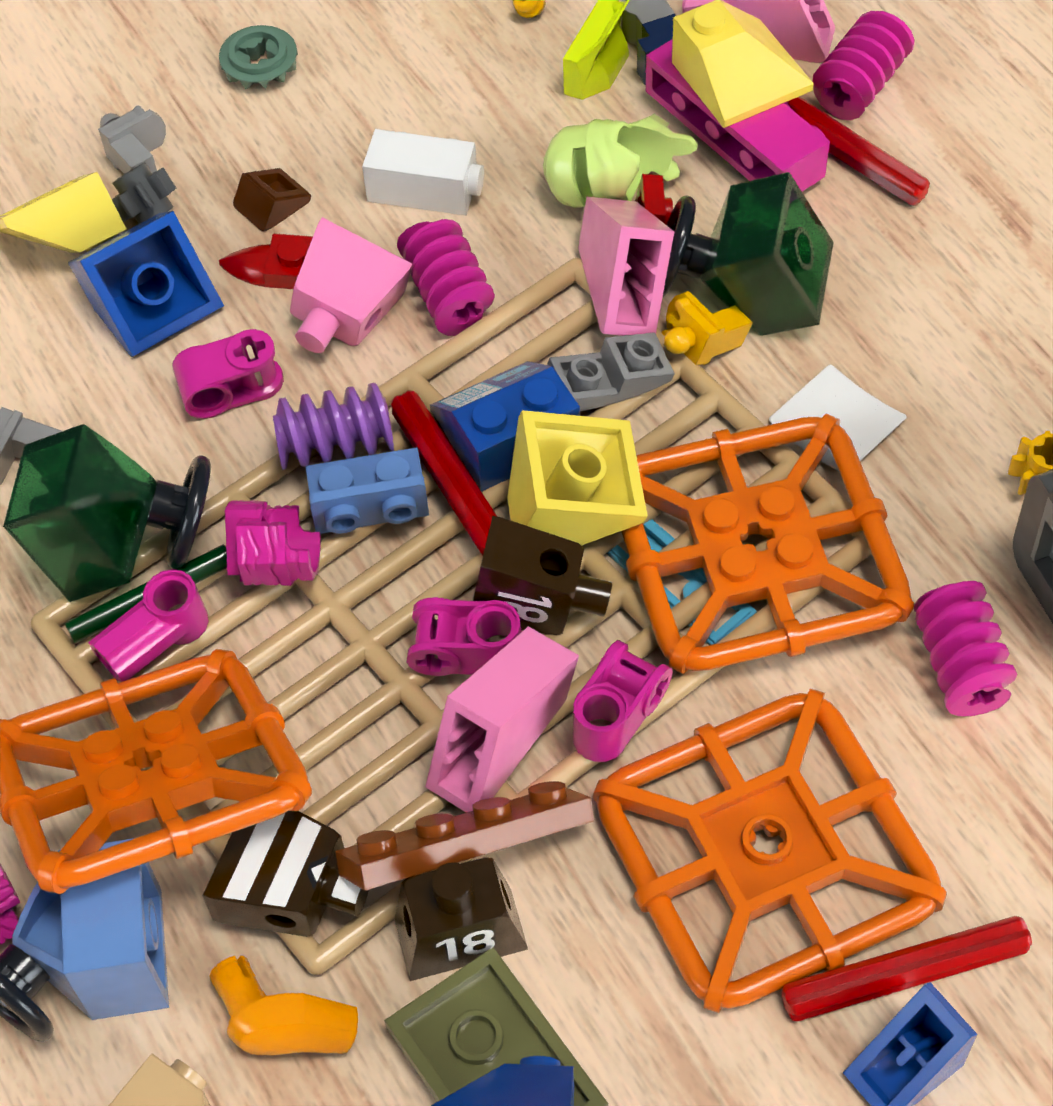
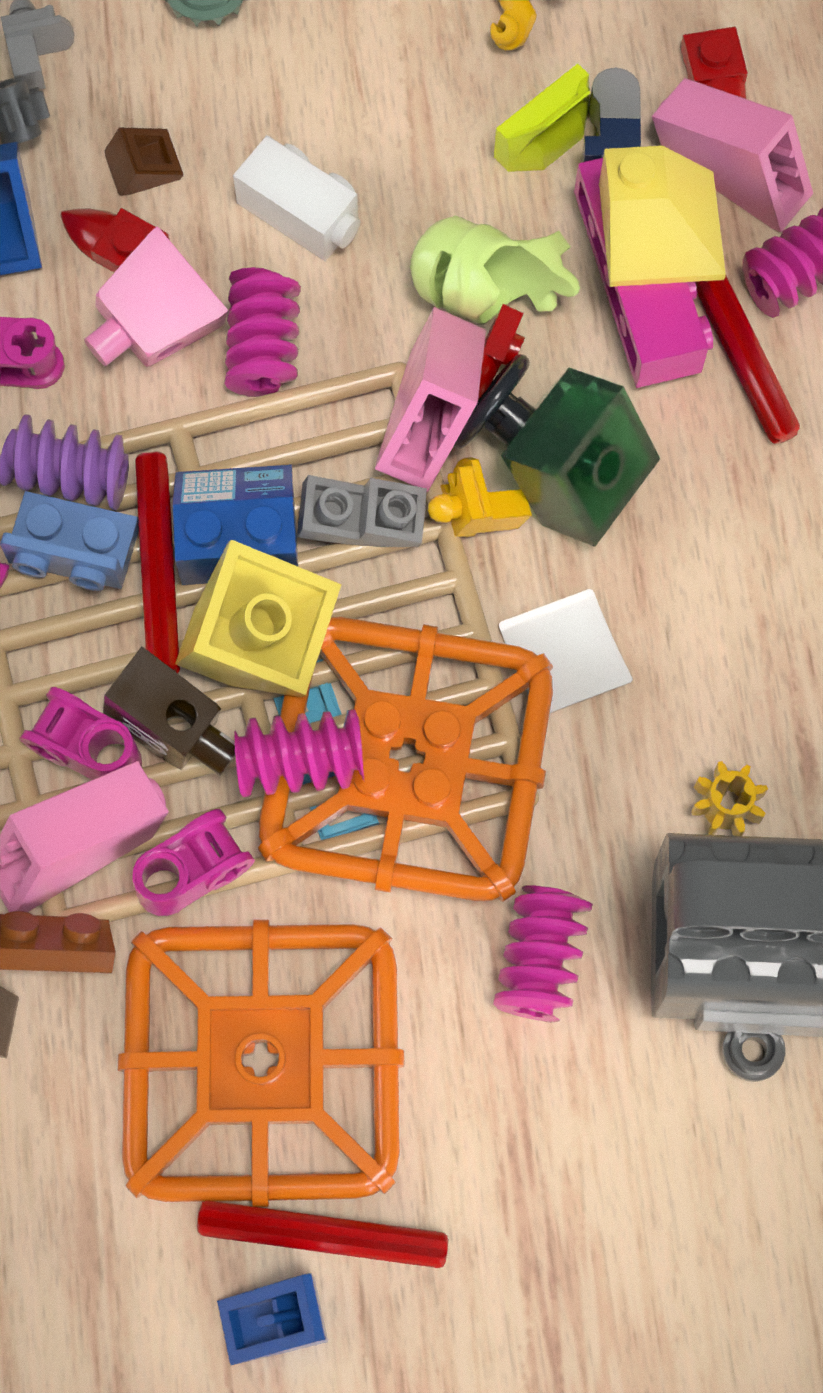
camera: 20 degrees right, 15 degrees up
(672, 553) = (298, 753): none -> dark pink piece

